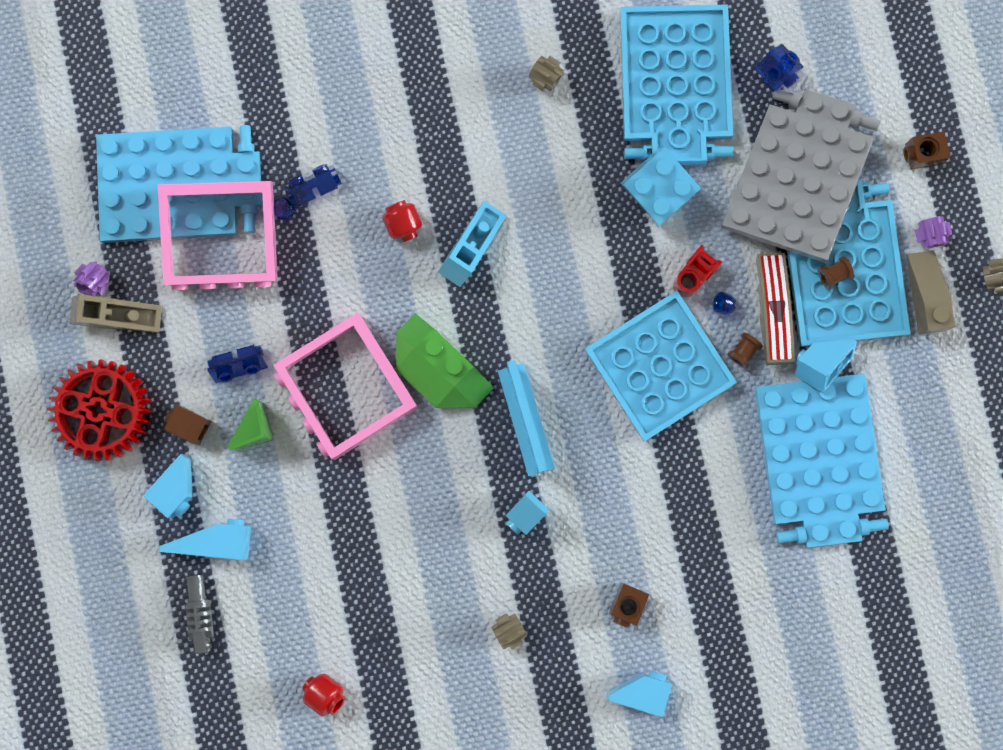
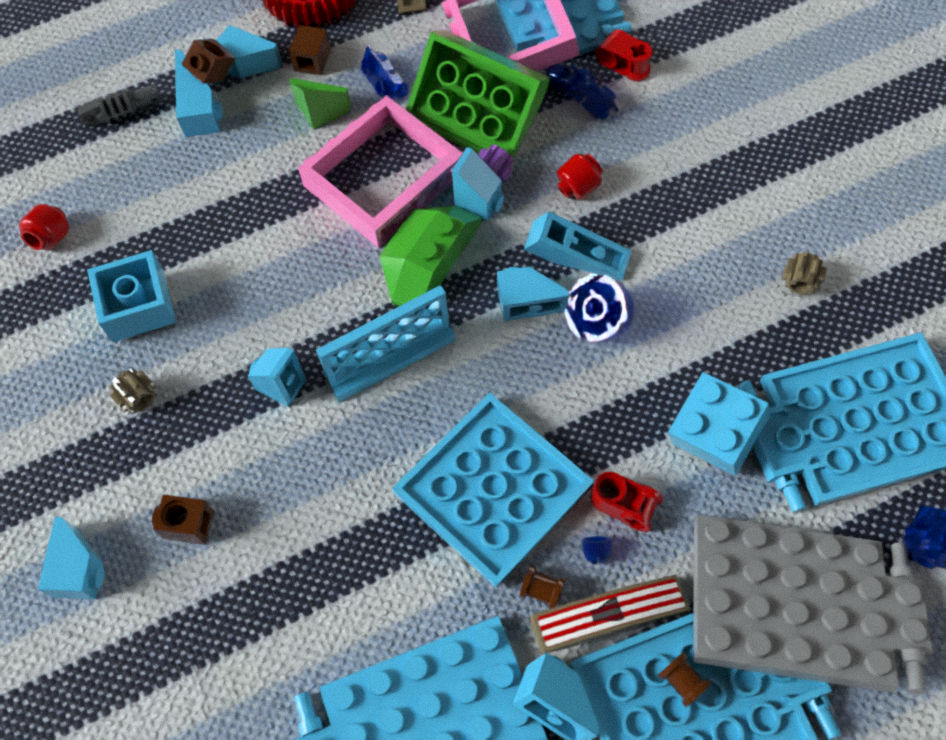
camera: 80 degrees right, 20 degrees down
(187, 520) = (208, 60): none -> reddish brown brick
(277, 141) = (624, 52): none -> red piece
(300, 285) = (475, 94): none -> bright green slope
(371, 289) = (498, 160): none -> medium lavender gear
(394, 309) = (476, 185): none -> medium azure slope
(421, 622) = (131, 296): none -> medium azure brick
(503, 296) = (529, 294): none -> medium azure slope
(540, 243) = (599, 308): none -> clear blue cylinder

